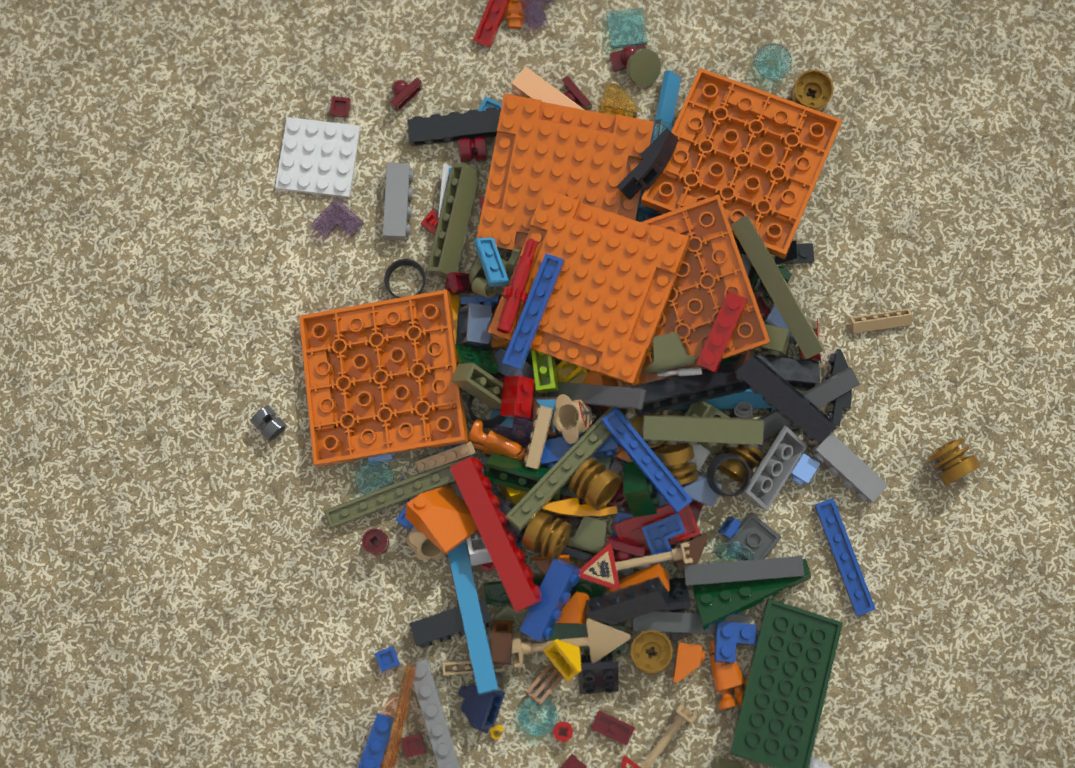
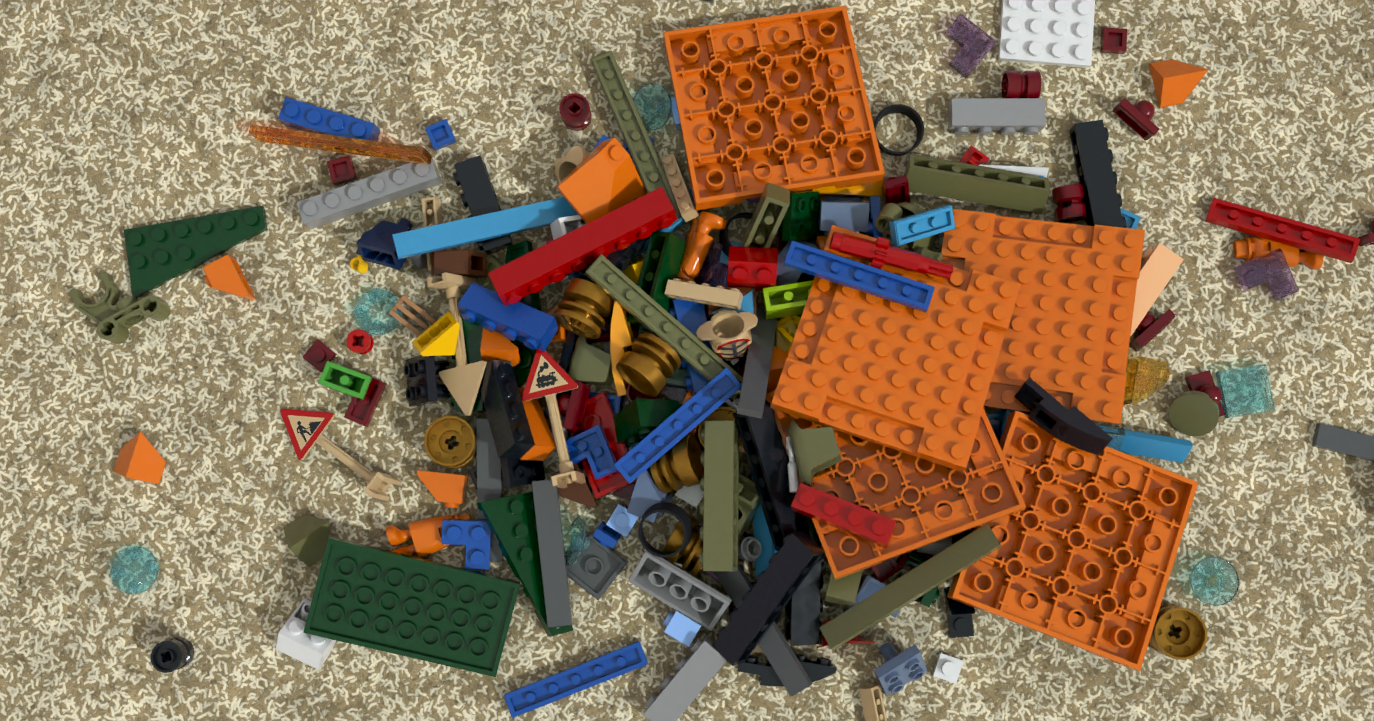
camera: 85 degrees right, 5 degrees up
(374, 180) = (1021, 85): none -> dark red wheel
(376, 62) = (1174, 81): none -> orange slope
(597, 740) = (344, 380): none -> bright green slope
(718, 514) = (622, 521): none -> light blue brick
(837, 264) = (947, 667): none -> white plate
(837, 300) = (899, 668): none -> sand blue plate

